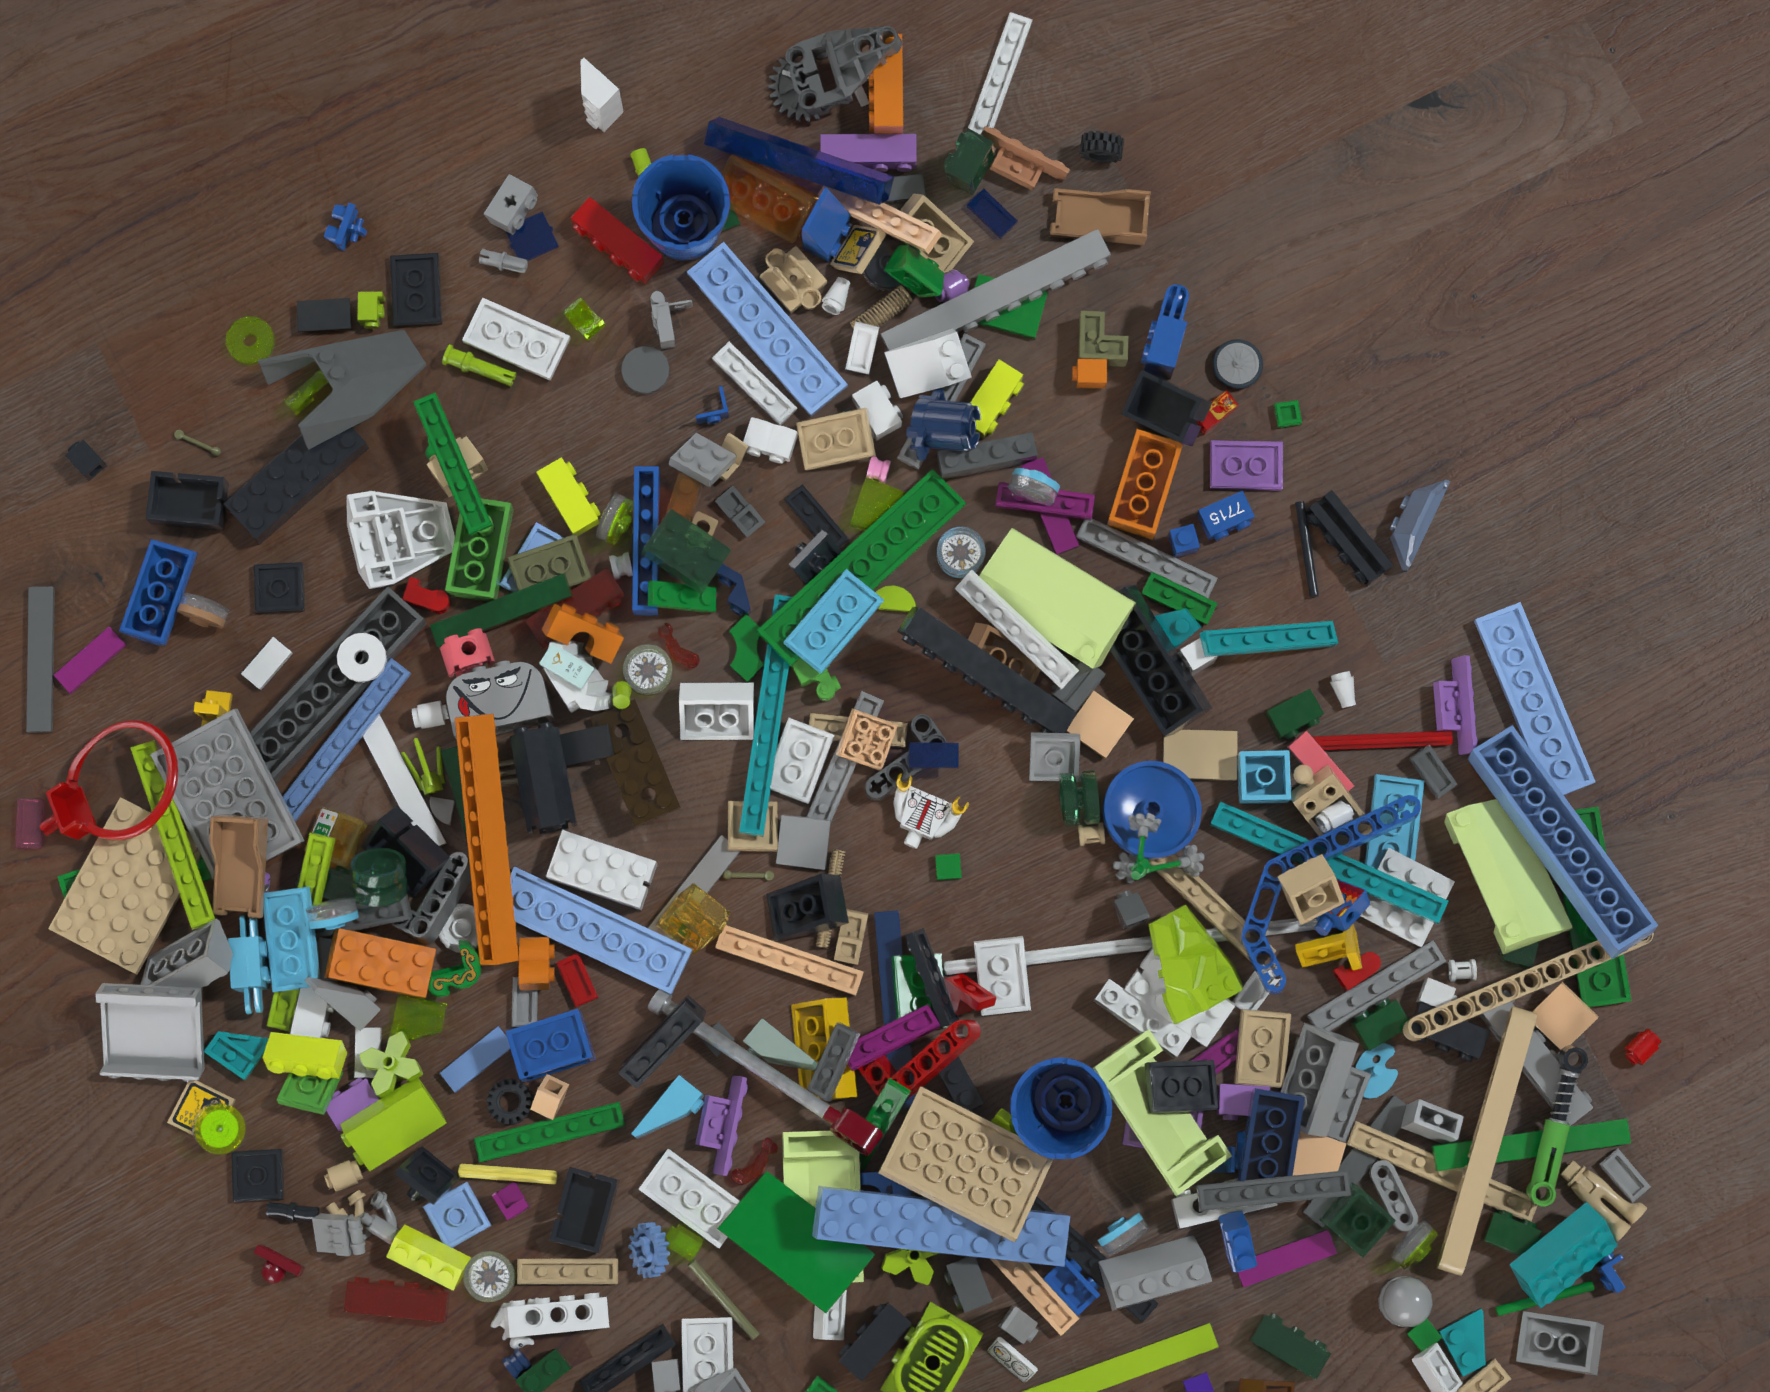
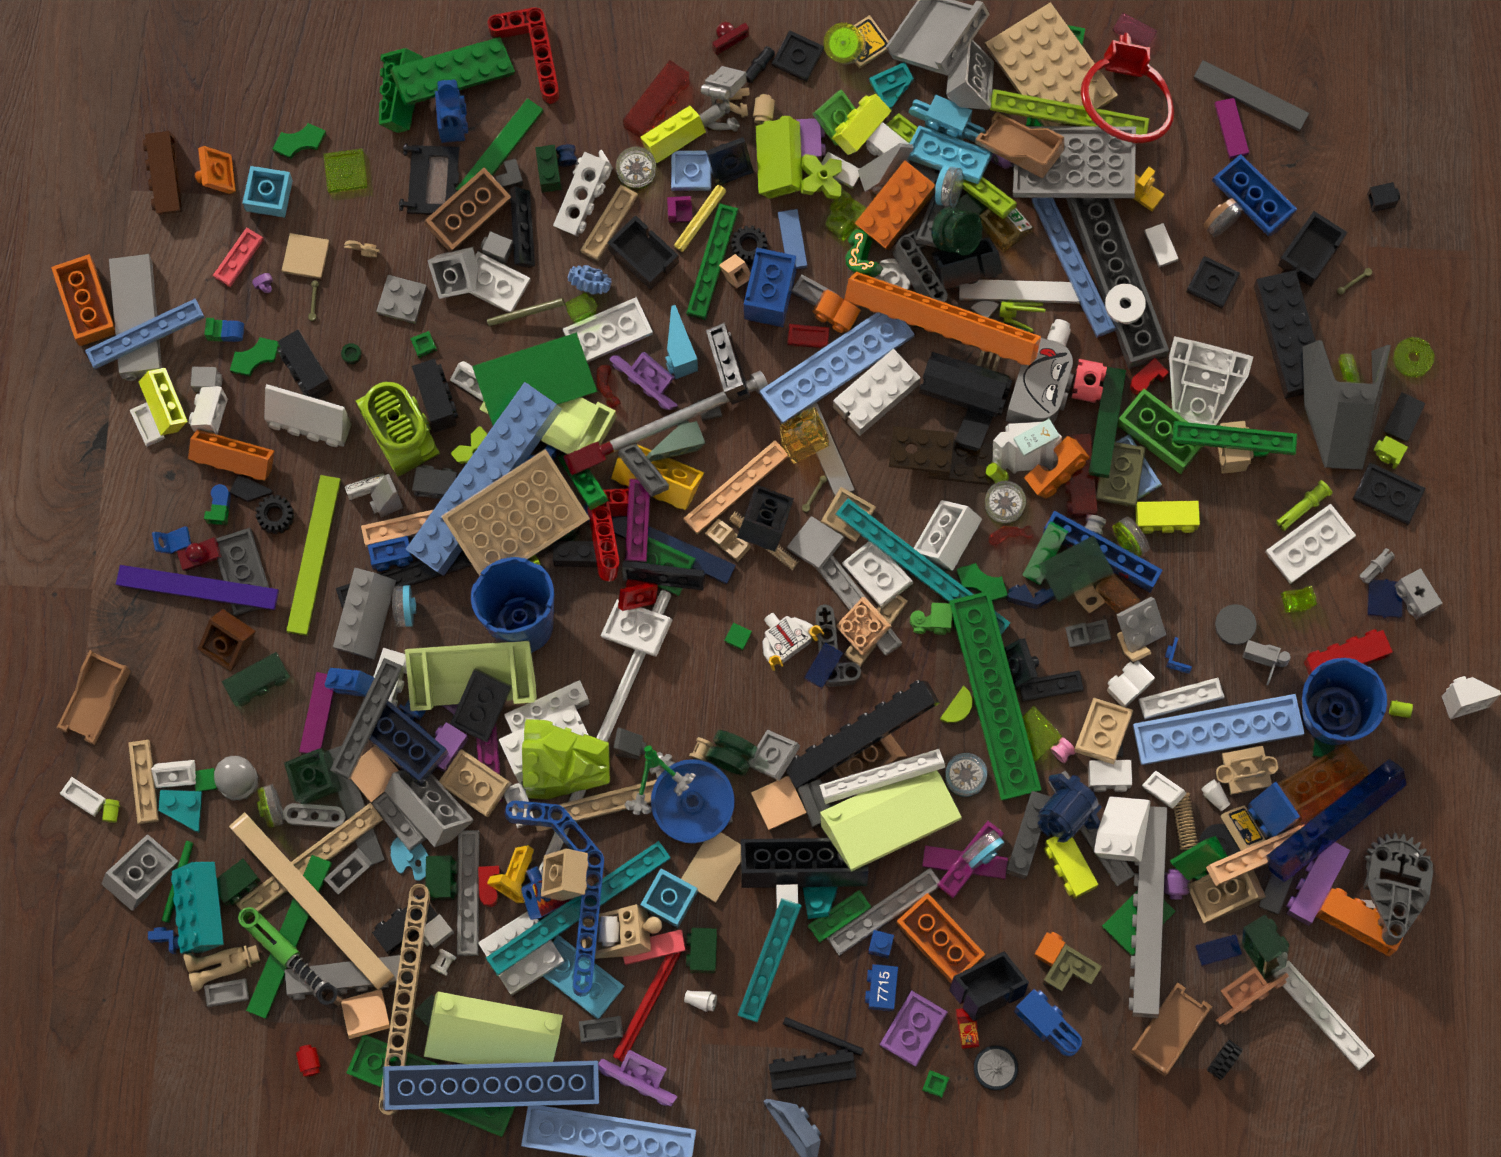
camera: 125 degrees right, 5 degrees down
(341, 235) = (1463, 469): blue hips -> none
(833, 621) = (964, 648): medium azure tile -> none

